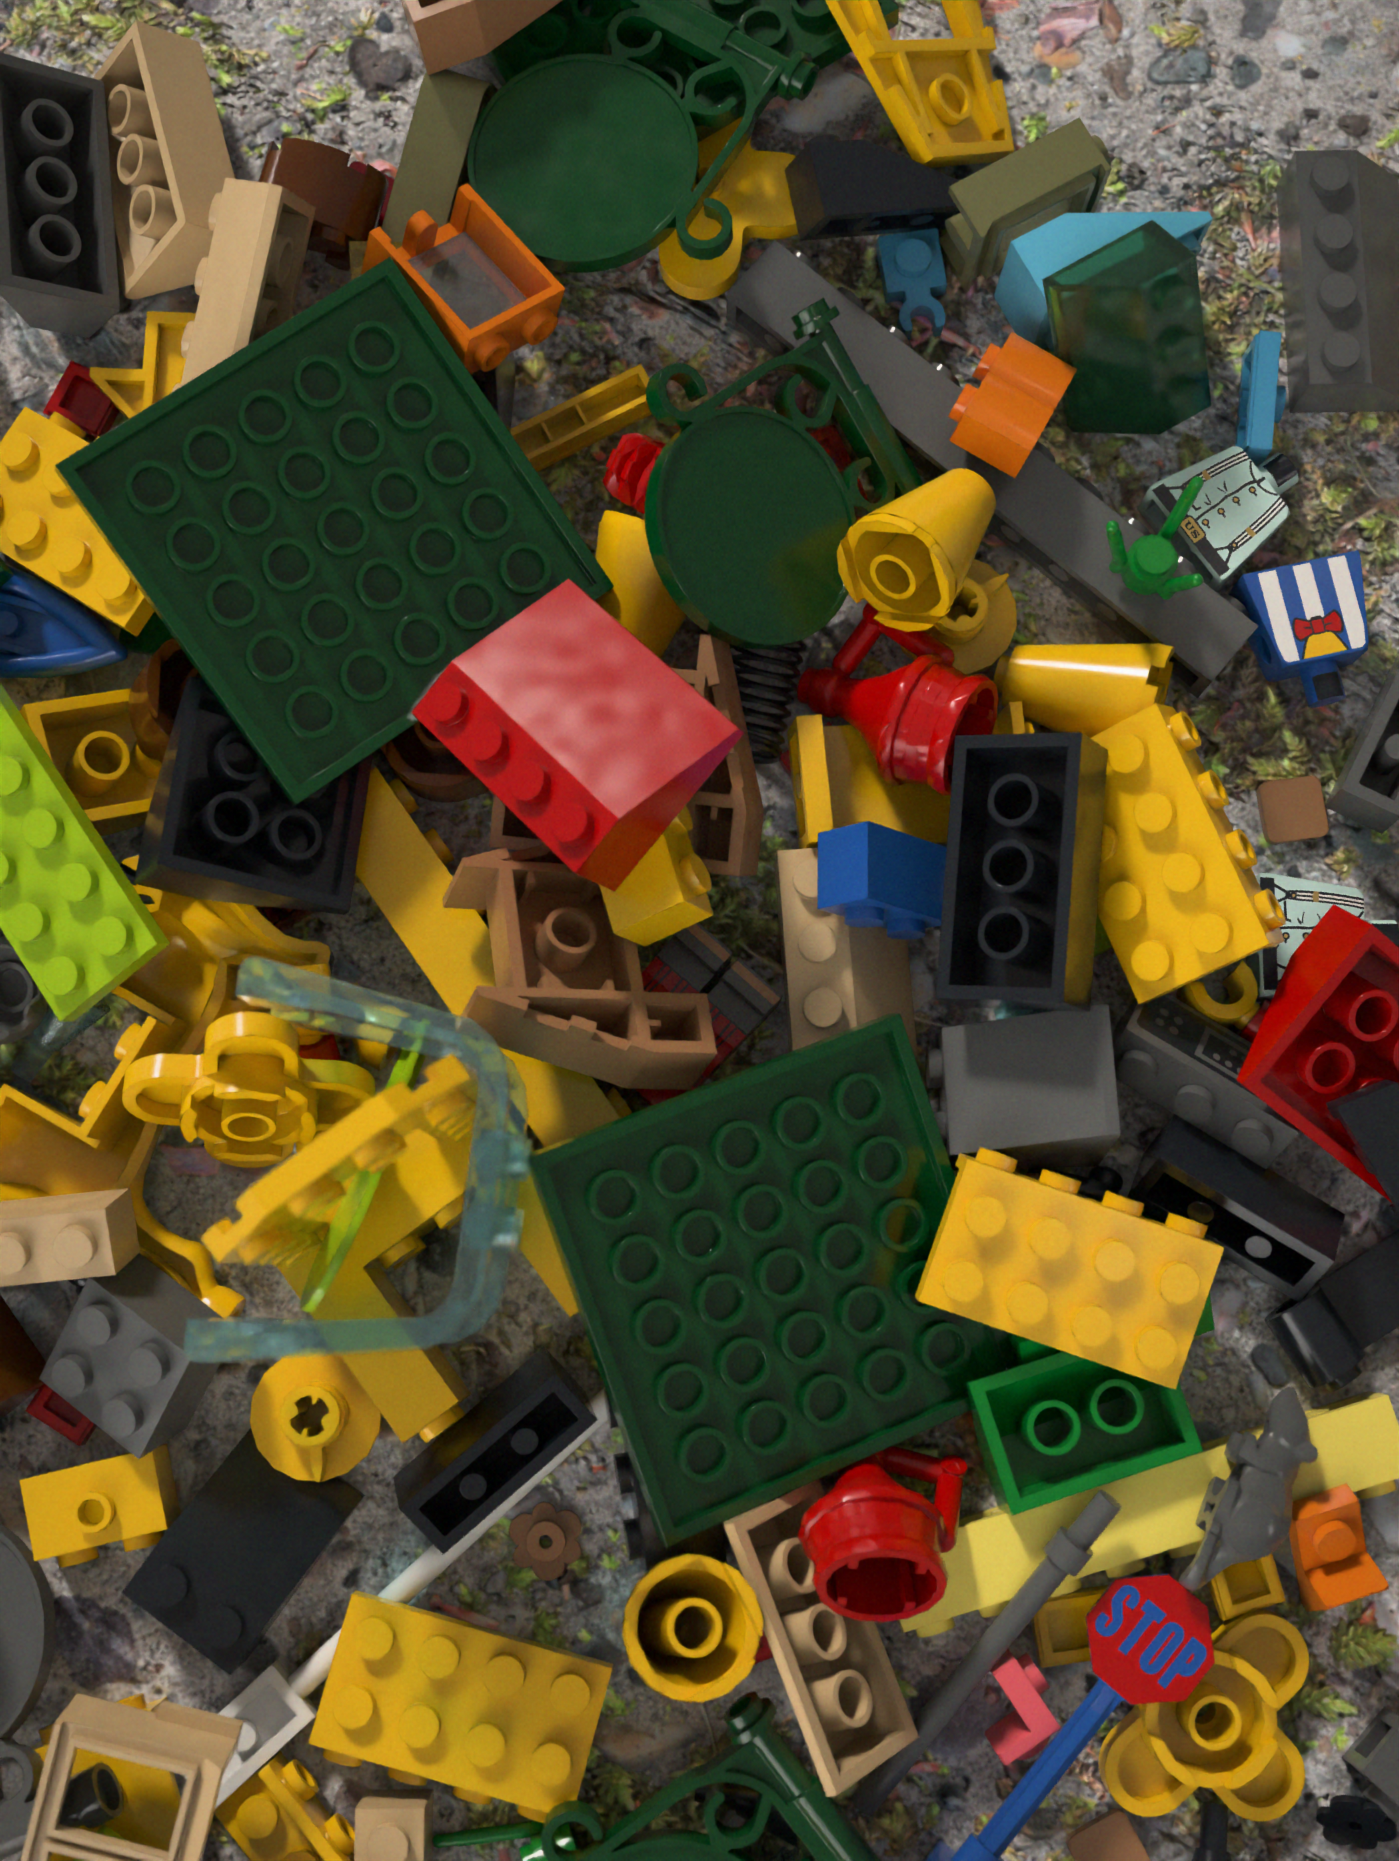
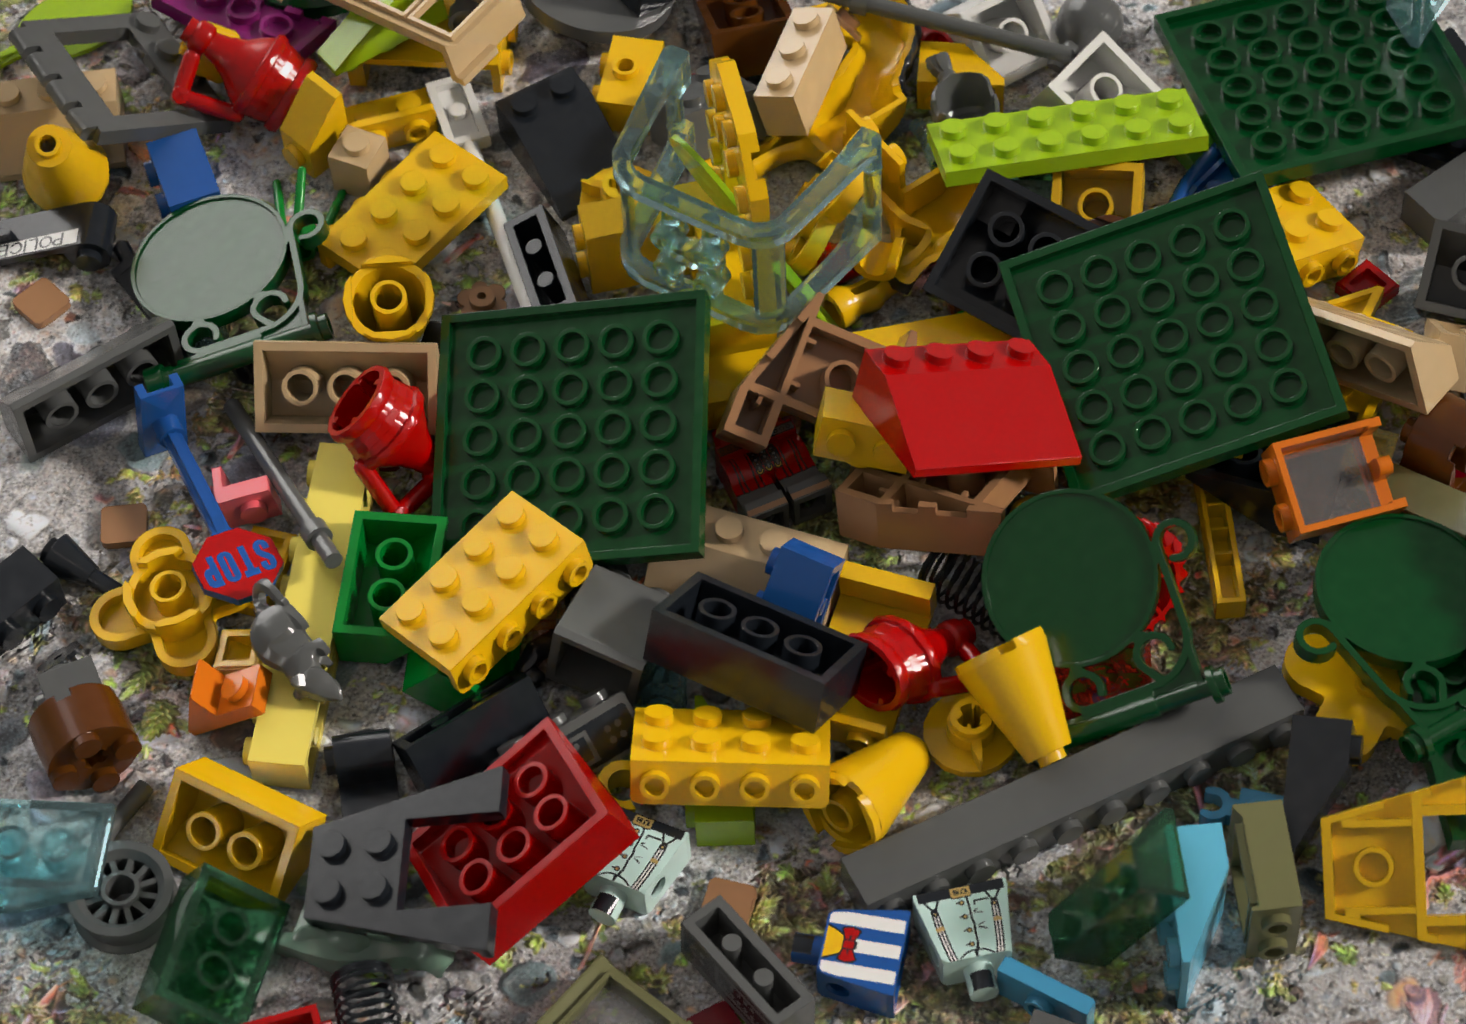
camera: 120 degrees right, 25 degrees down
(1011, 404) = (1102, 794): orange brick -> none
(1153, 558) = (943, 836): green plant -> none

